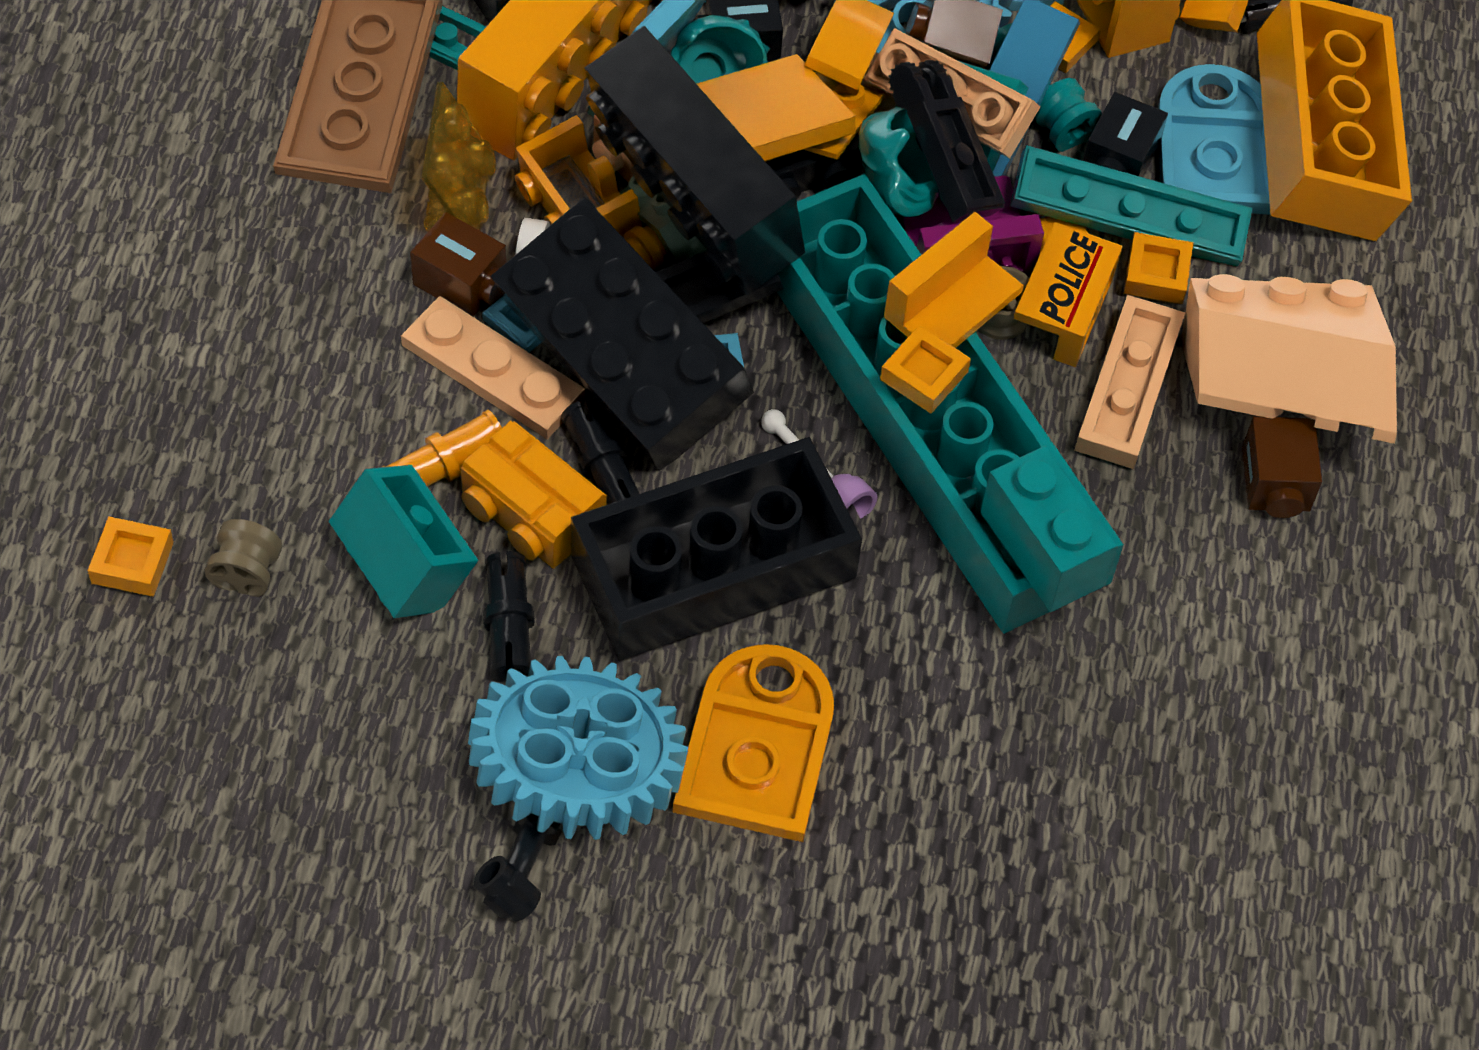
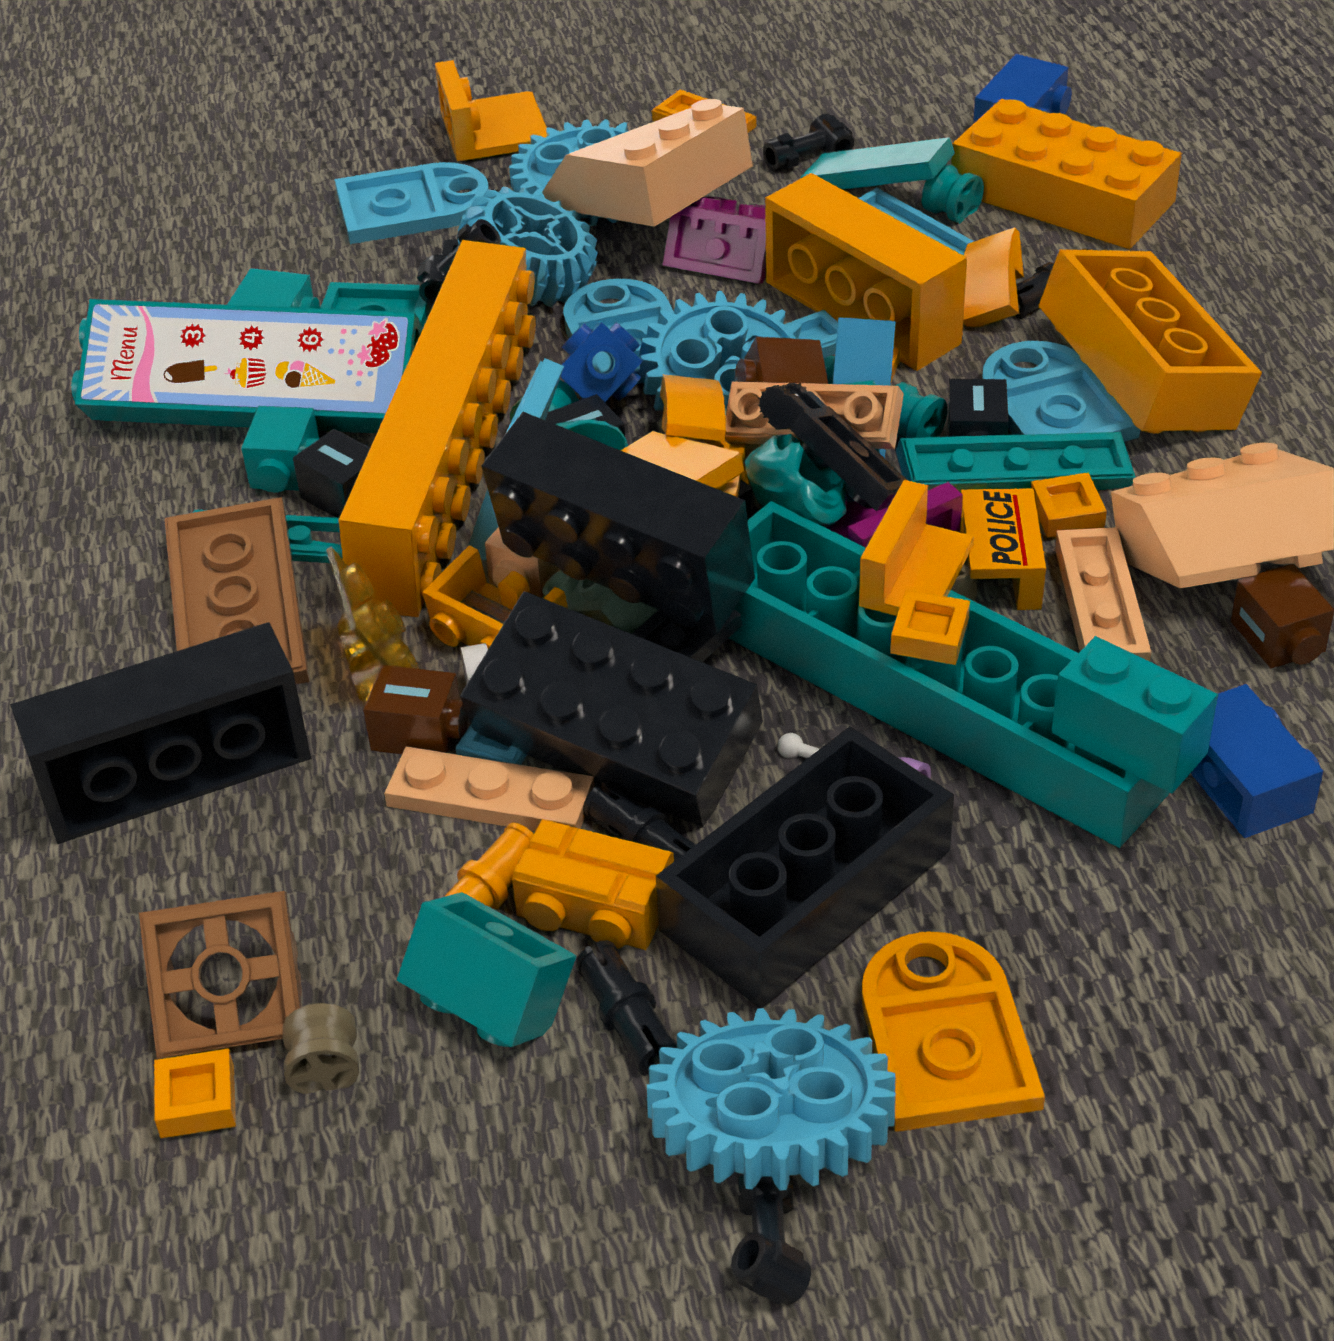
camera: 15 degrees left, 15 degrees down
(231, 209) = (163, 731): none -> black brick
(243, 425) = (166, 927): none -> medium nougat piece
(1161, 598) = (1256, 766): none -> blue brick

